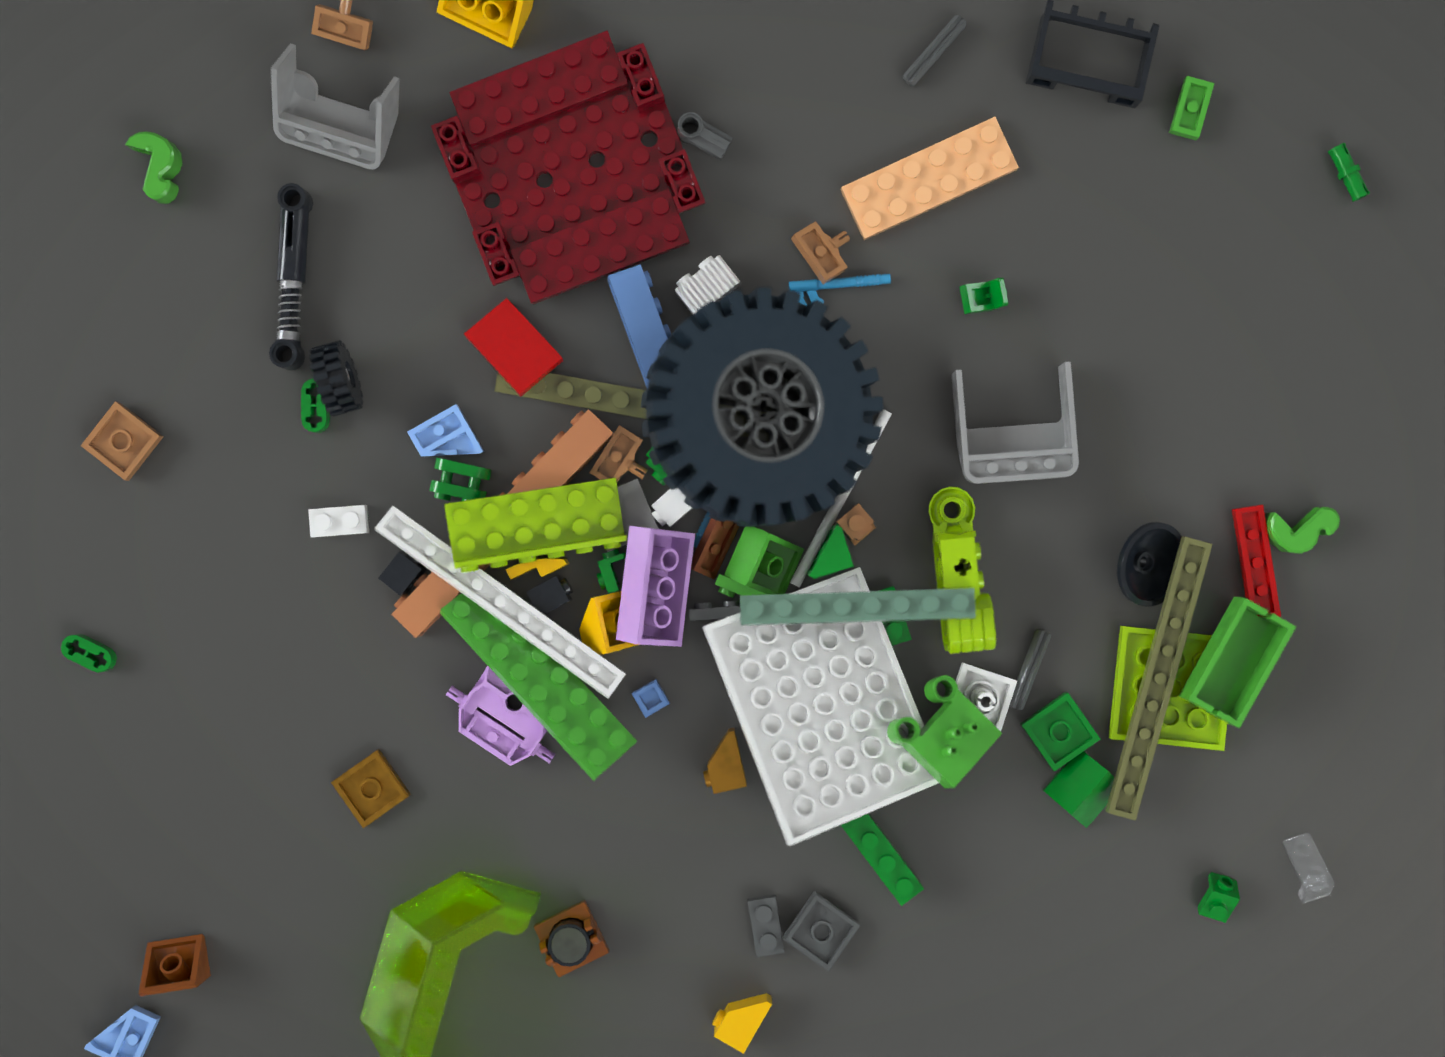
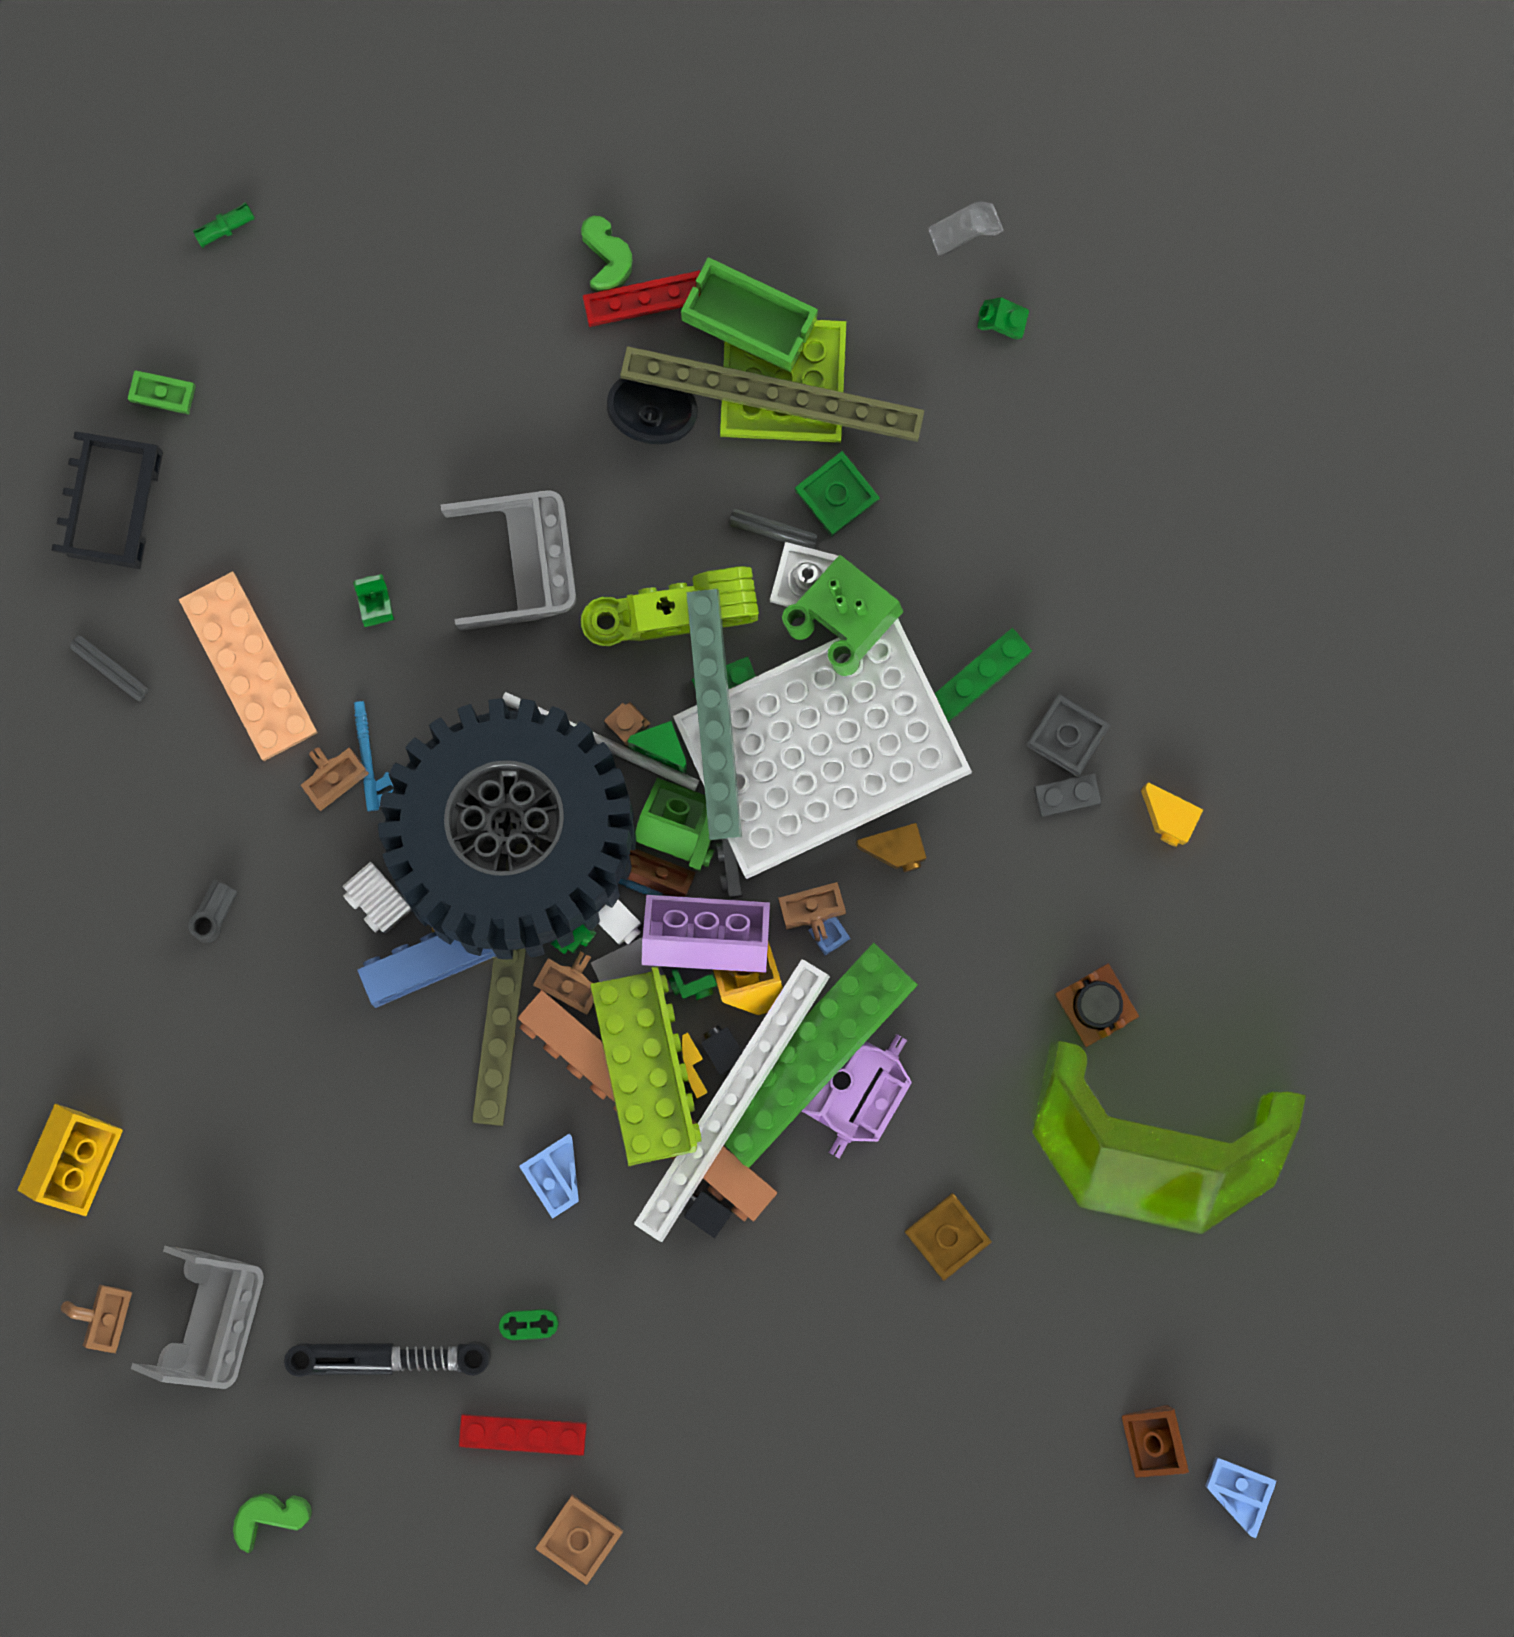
camera: 100 degrees left, 5 degrees down
(85, 658) = (824, 1567): green beam -> none
(218, 395) = (522, 1434): none -> red plate
(336, 378) = (497, 1297): black bush -> none
(338, 521) = (655, 1290): white plate -> none
(444, 489) = (613, 1173): green brick -> none
(513, 347) = (453, 1106): red tile -> none
(550, 122) = (203, 1080): dark red slope -> none
(674, 685) = (812, 908): none -> medium nougat plate
(1081, 788) = (896, 467): green slope -> none

